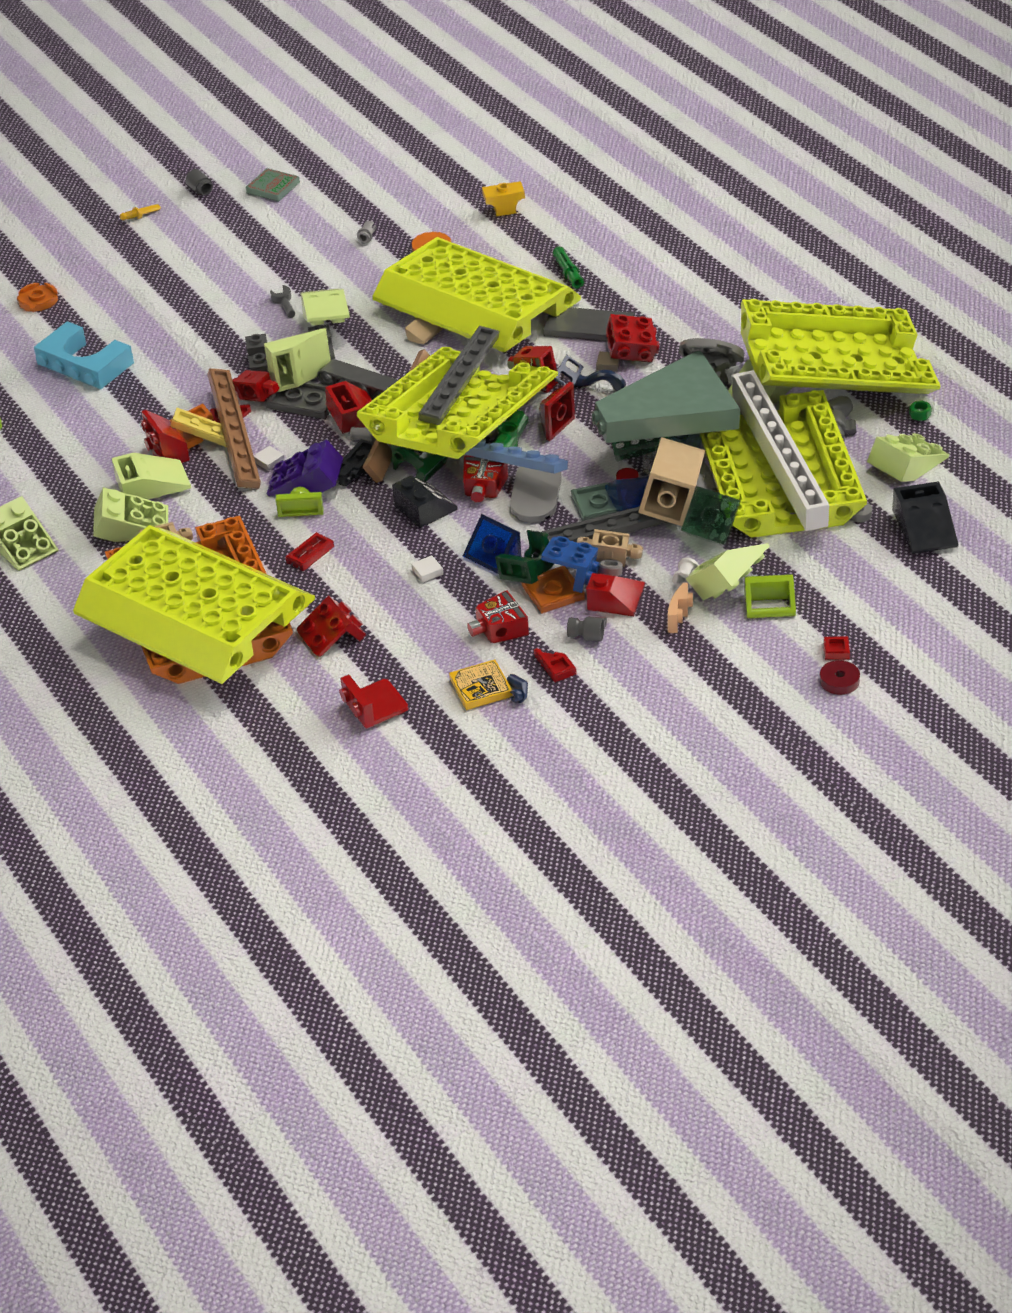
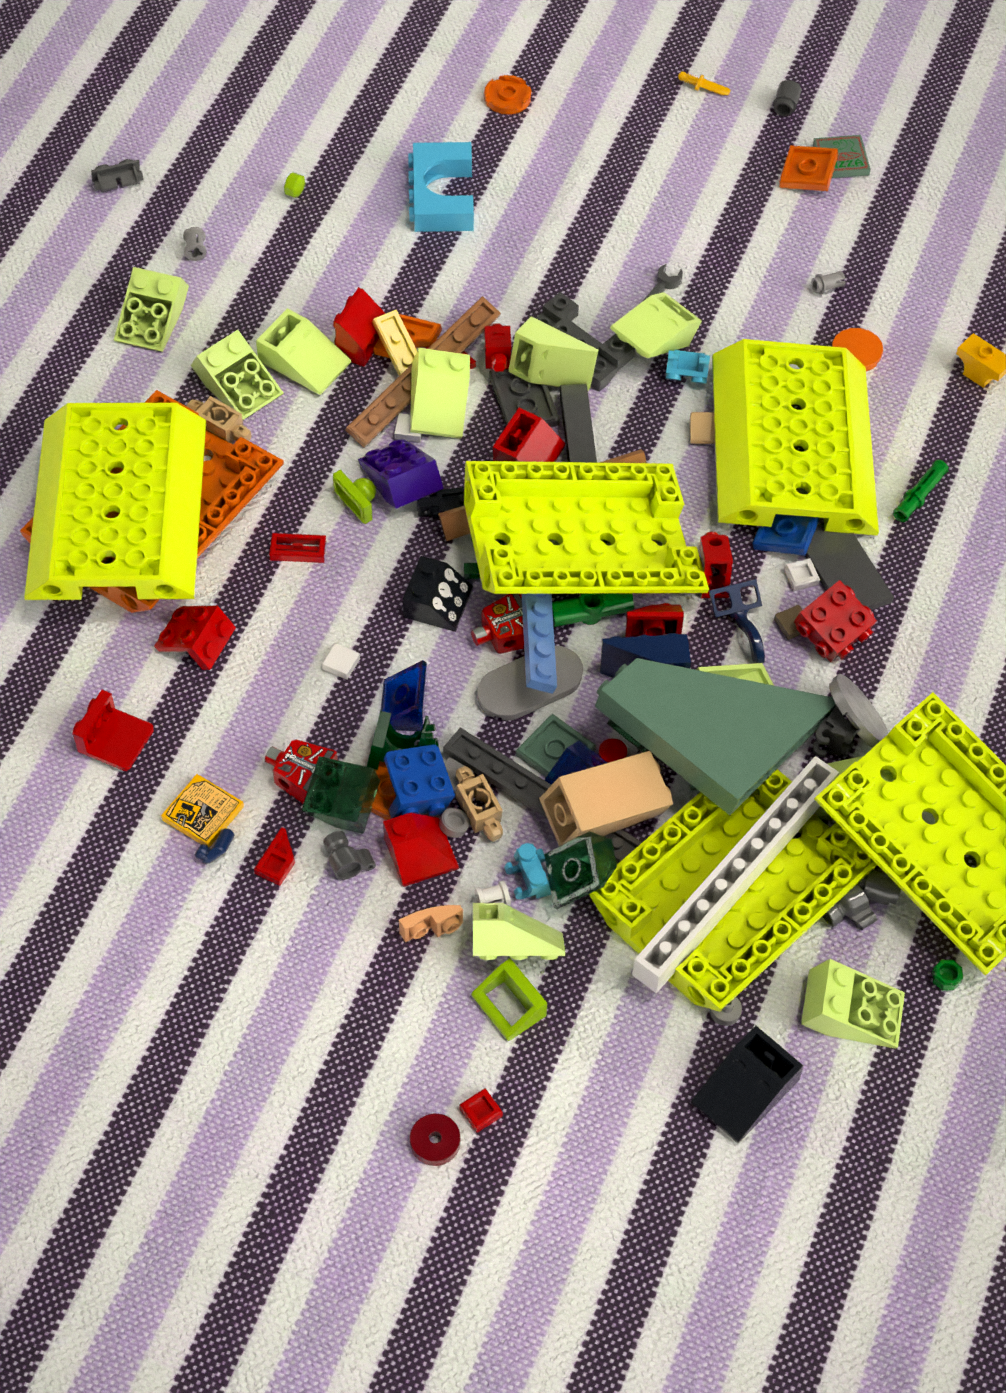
camera: 50 degrees right, 15 degrees up
(262, 422) = (439, 392): none -> yellowish green slope
(267, 198) = (808, 168): none -> orange tile
(365, 313) = (689, 365): none -> medium azure piece
(458, 375) = (620, 508): dark grey tile -> none
(544, 330) = (786, 535): none -> blue tile
(544, 601) = (341, 794): none -> clear green slope
(575, 428) = (665, 649): none -> dark blue slope
(576, 342) = (801, 574): none -> white tile
(682, 546) = (531, 871): none -> medium azure piece

